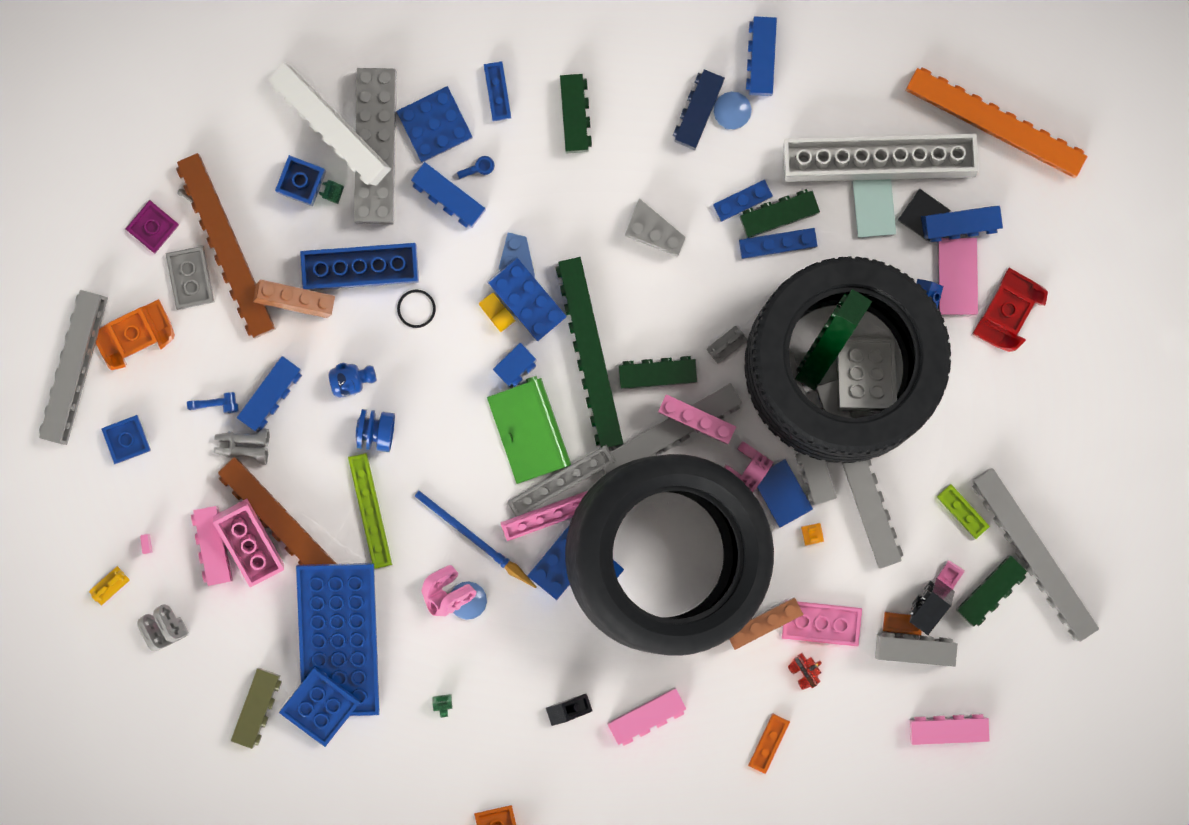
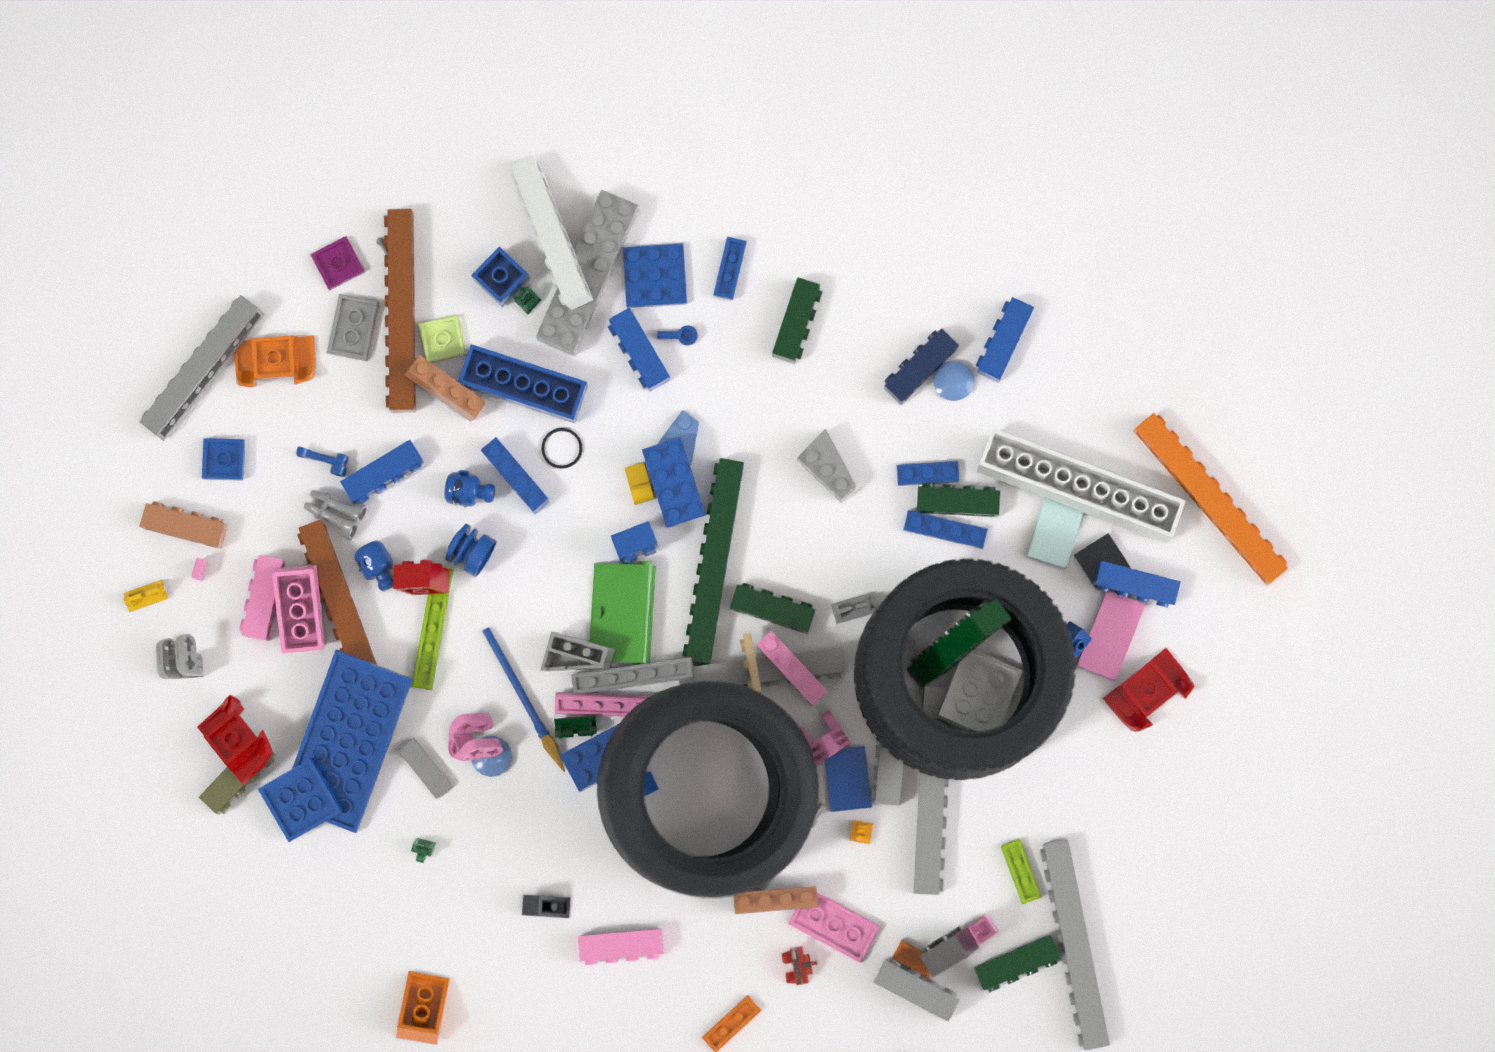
camera: 30 degrees right, 5 degrees down
(116, 511) = (183, 525): none -> nougat brick
(242, 679) = (235, 741): none -> red piece
(272, 256) = (442, 339): none -> yellowish green tile
(298, 475) = (375, 564): none -> blue piece
(343, 472) = (421, 578): none -> red brick
(386, 349) = (515, 475): none -> blue brick
(415, 634) = (425, 768): none -> light grey tile
(501, 483) = (573, 653): none -> light grey wedge
(524, 547) = (575, 725): none -> dark green hinge
(659, 430) = (750, 664): none -> tan plate

